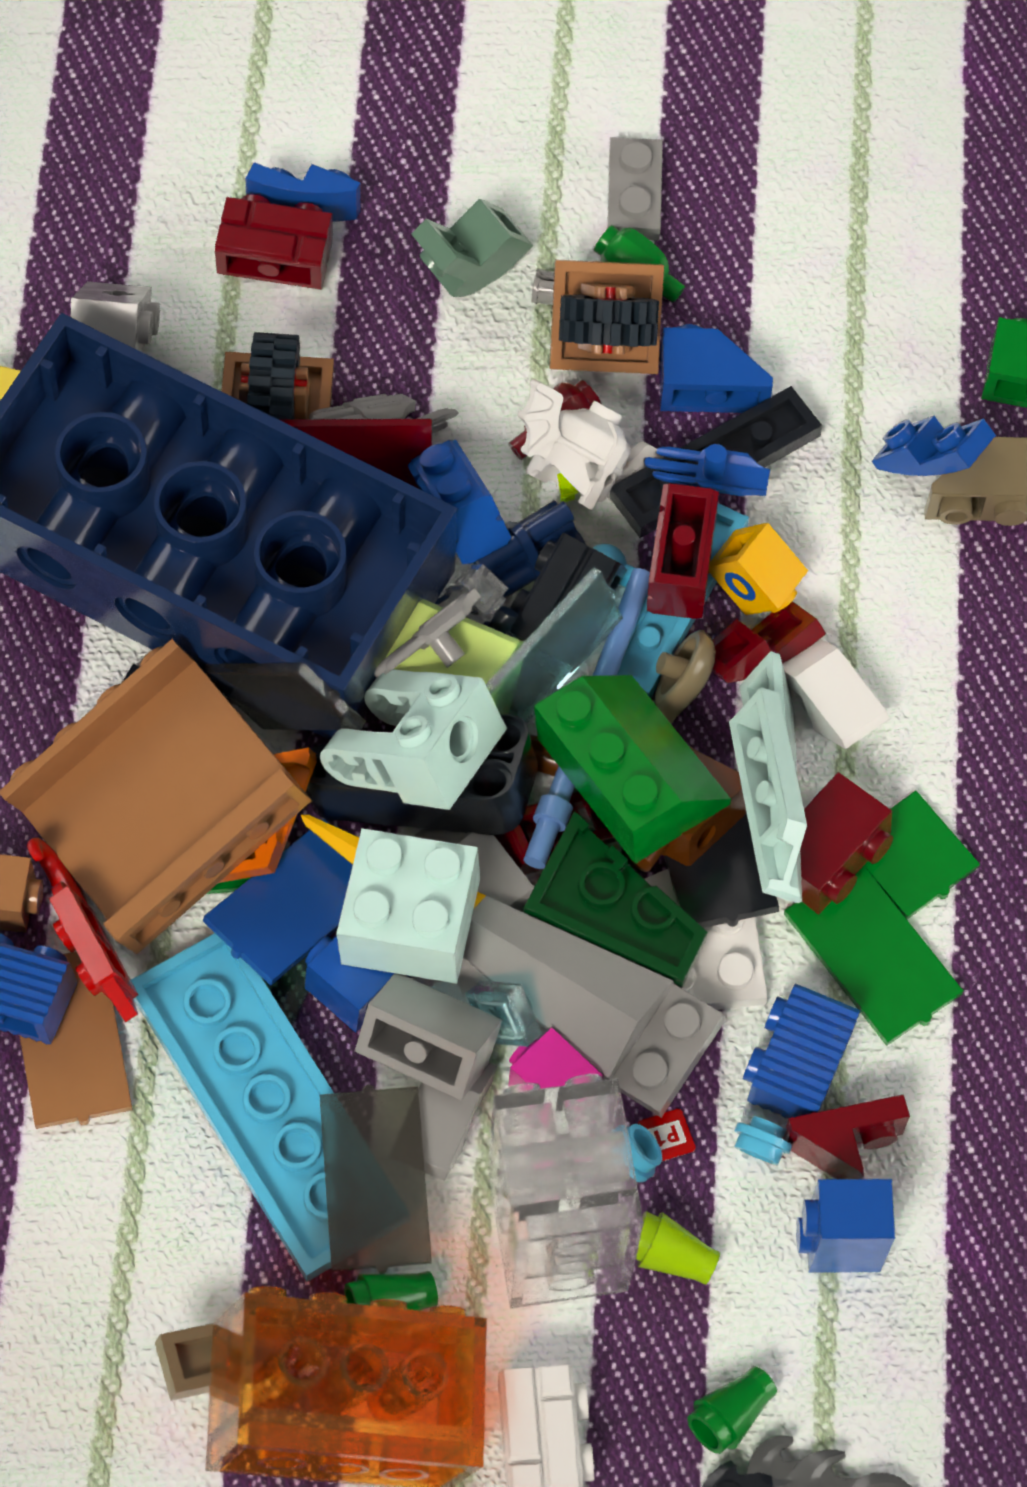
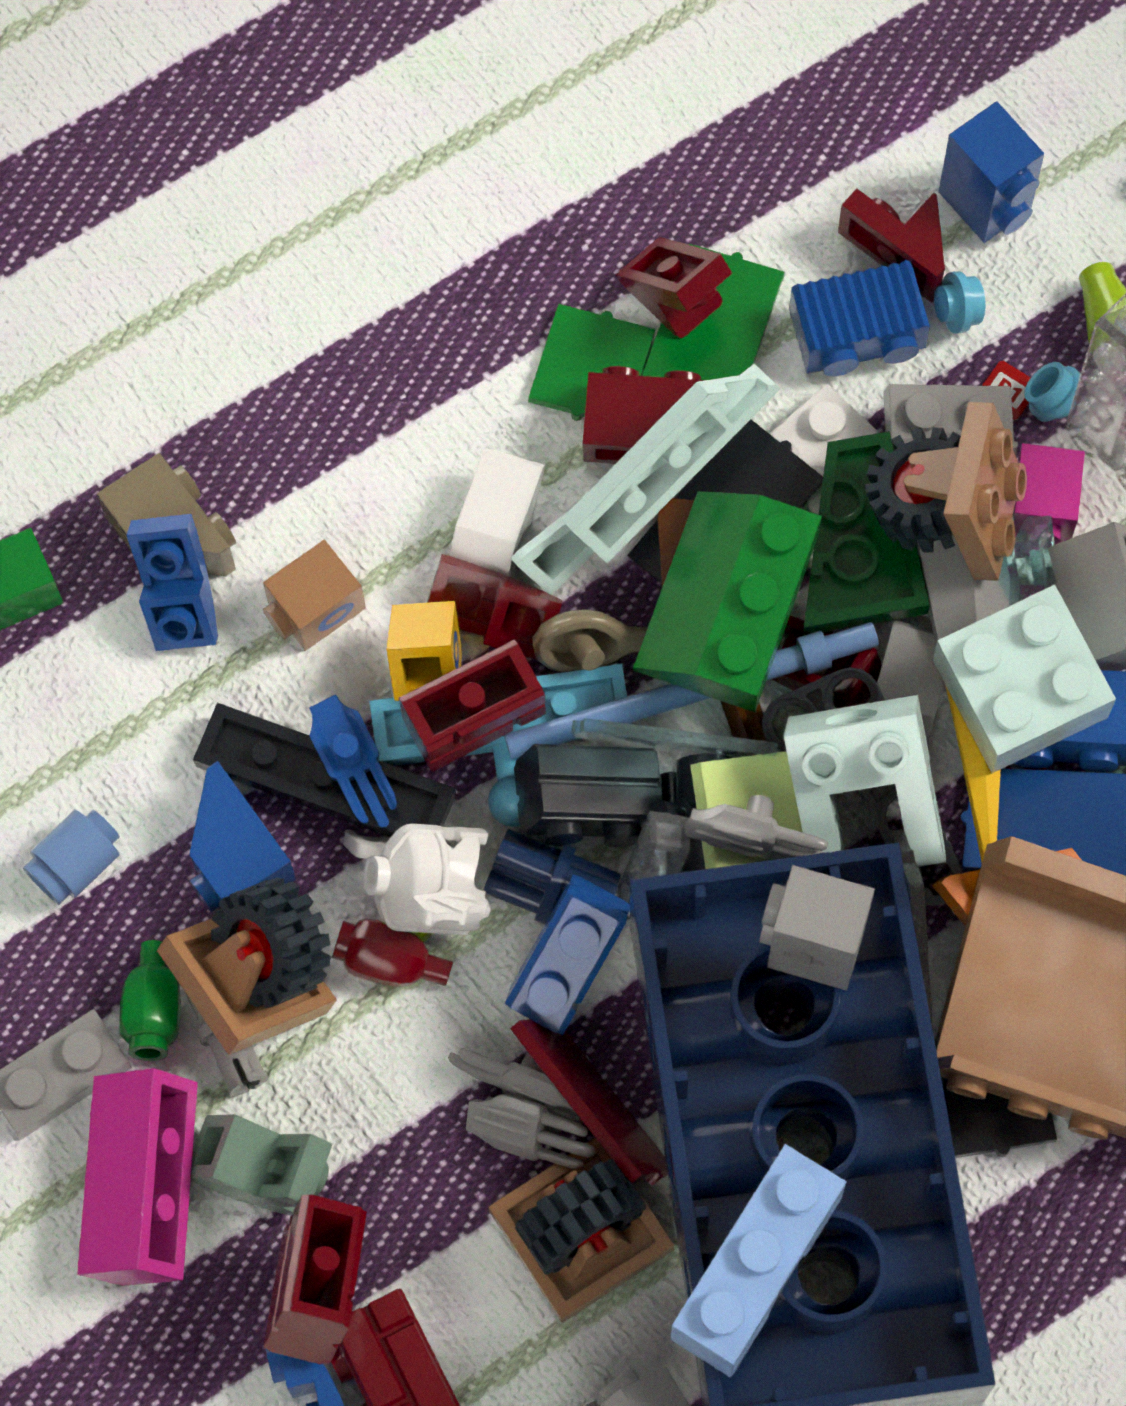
camera: 120 degrees left, 5 degrees up
(134, 384) = (757, 1260): none -> light blue arch
(314, 558) = (816, 926): none -> light grey brick
(361, 203) = (315, 1279): none -> dark red brick
(520, 174) = (138, 1178): none -> dark pink brick
(585, 958) = (952, 488): none -> medium nougat plate
(778, 277) = (72, 855): none -> medium blue brick
(859, 538) = (312, 596): none -> medium nougat brick
(930, 938) = (676, 283): none -> dark red slope

